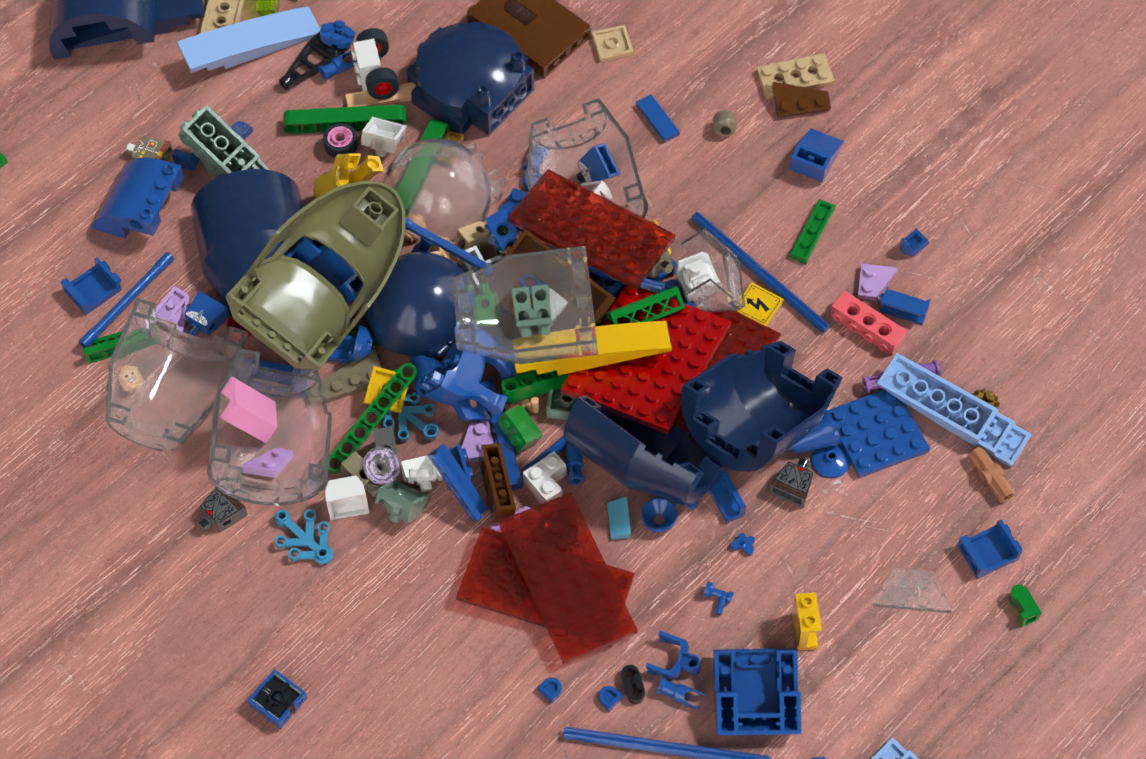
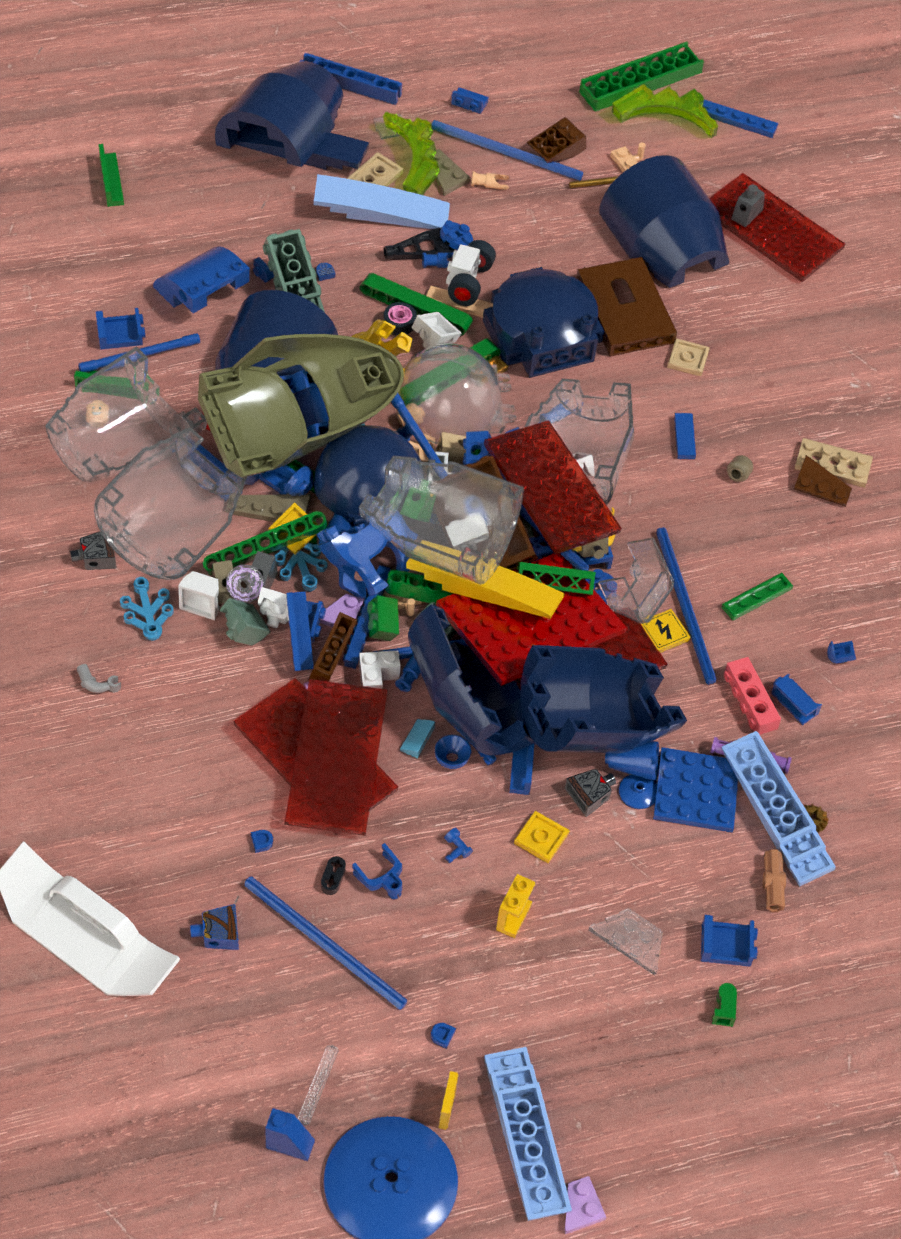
camera: 25 degrees right, 5 degrees down
(151, 148) = (242, 248): dark tan torso -> none
(174, 308) = (171, 379): lavender wing -> none
(205, 315) = (186, 395): blue torso -> none
(249, 410) = (166, 481): bright pink slope -> none
(269, 463) = (157, 534): lavender wing -> none
(277, 699) = (33, 720): piece -> none
(303, 635) = (92, 685): none -> light grey piece
(531, 315) = (451, 520): sand green hips -> none
(597, 165) = (599, 441): blue torso -> none
(609, 697) = (306, 875): blue tile -> none
(676, 692) = (365, 902): blue piece -> none
(694, 271) = (629, 567): white brick -> none
(744, 543) = (512, 816): blue piece -> none
(756, 691) = (432, 939): blue slope -> none
(780, 547) = (541, 836): none -> yellow tile
(815, 155) = (803, 534): blue slope -> none
(874, 280) = (783, 663): lavender wing -> none

